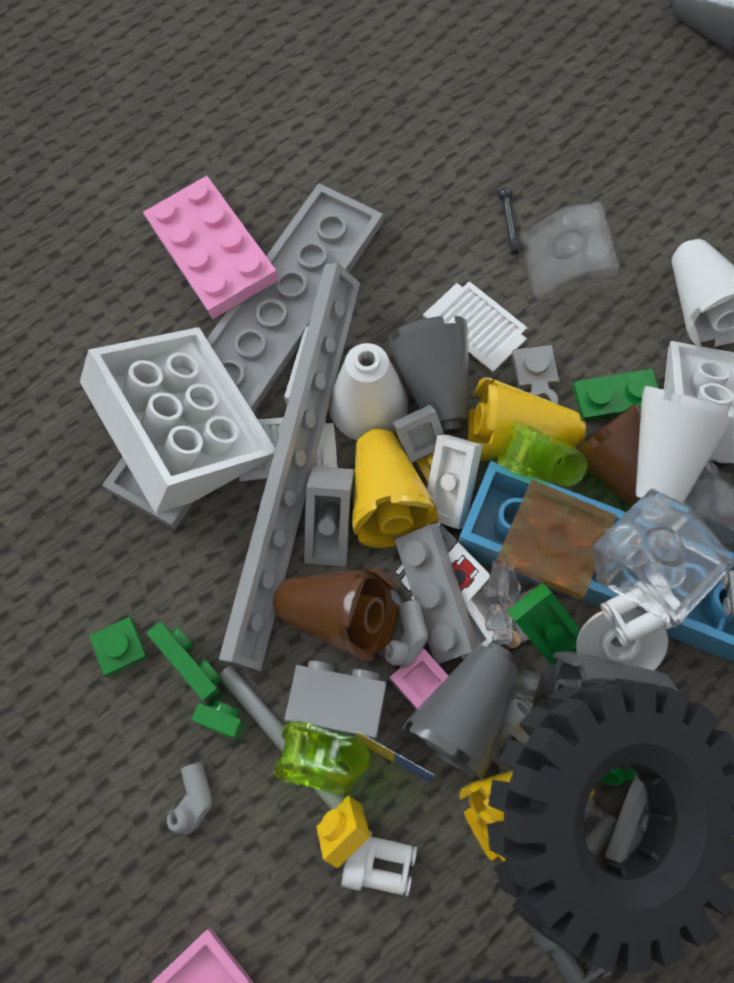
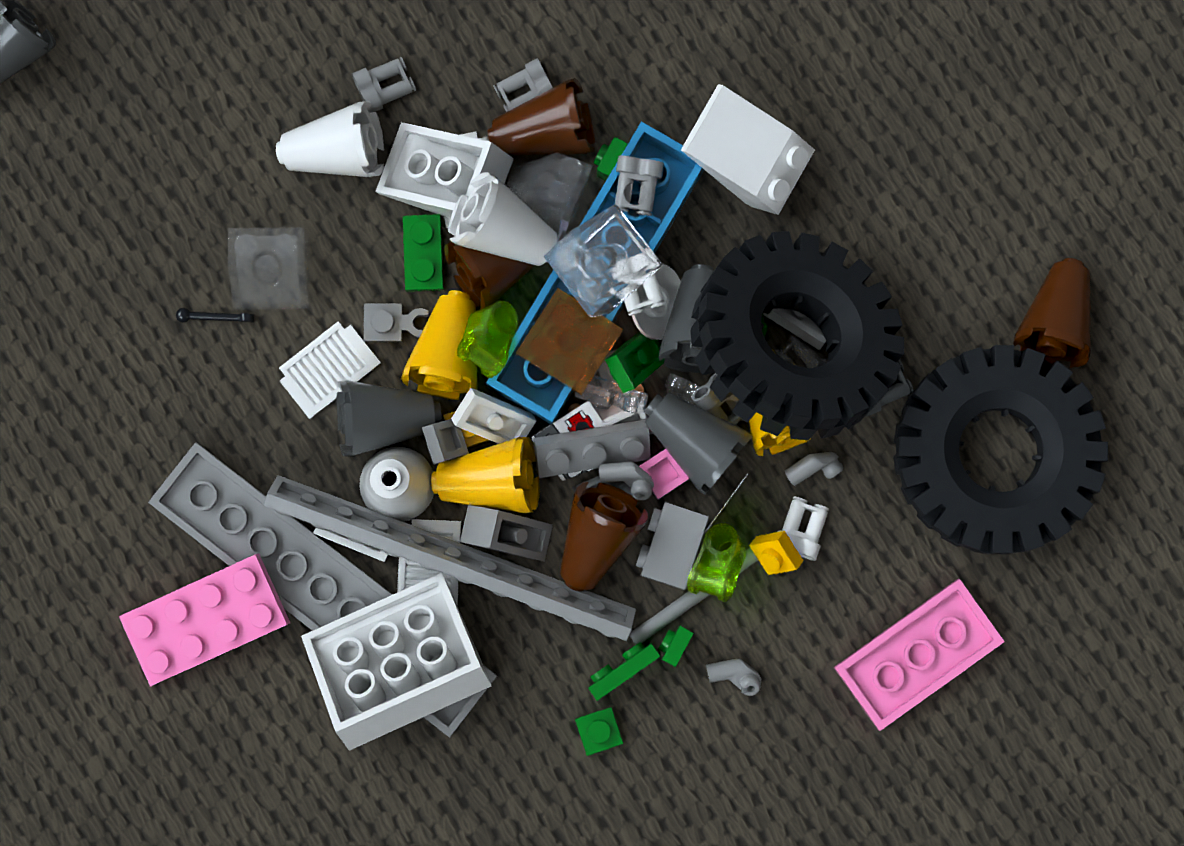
camera: 85 degrees left, 15 degrees up
(461, 866) = (811, 464): none -> light grey arm

